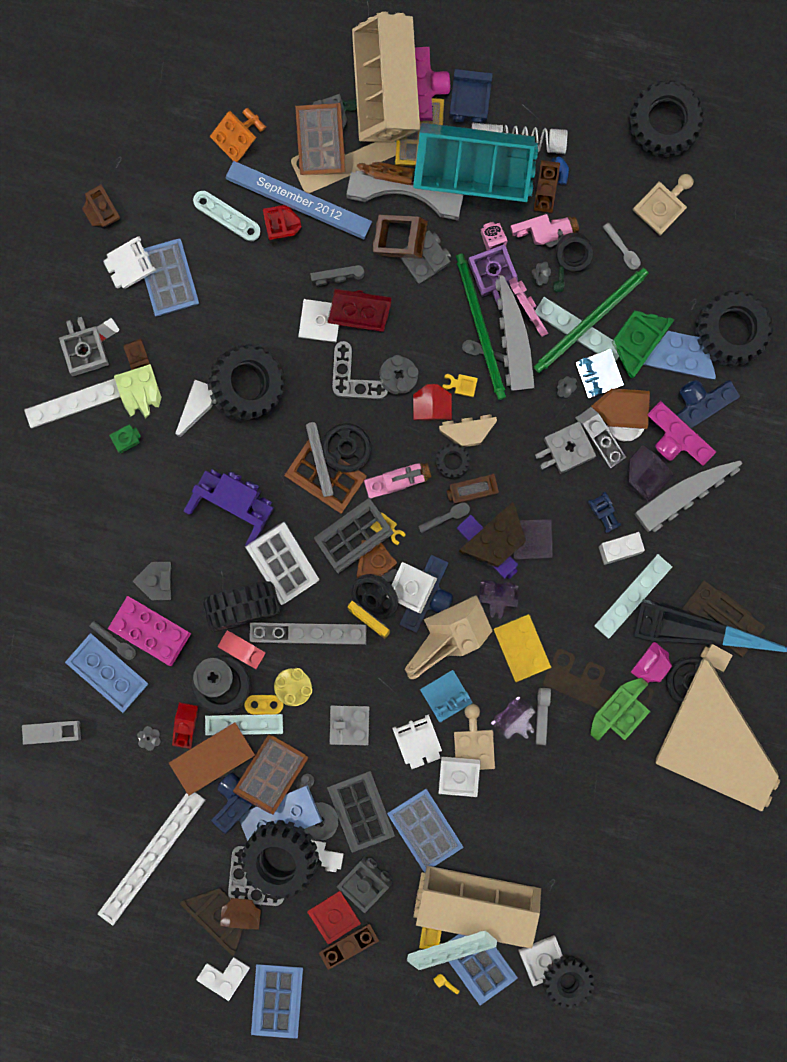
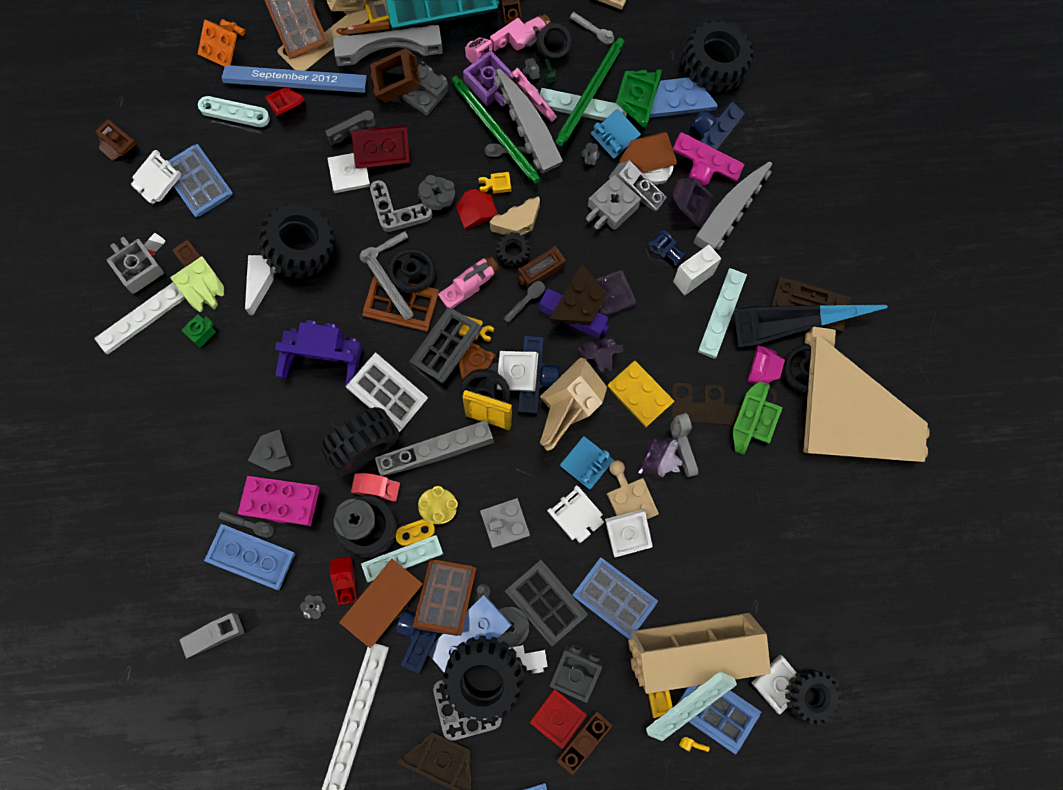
camera: 25 degrees left, 10 degrees down
(240, 914) = (463, 751): reddish brown slope -> none
(314, 414) = (373, 252): none -> light grey piece

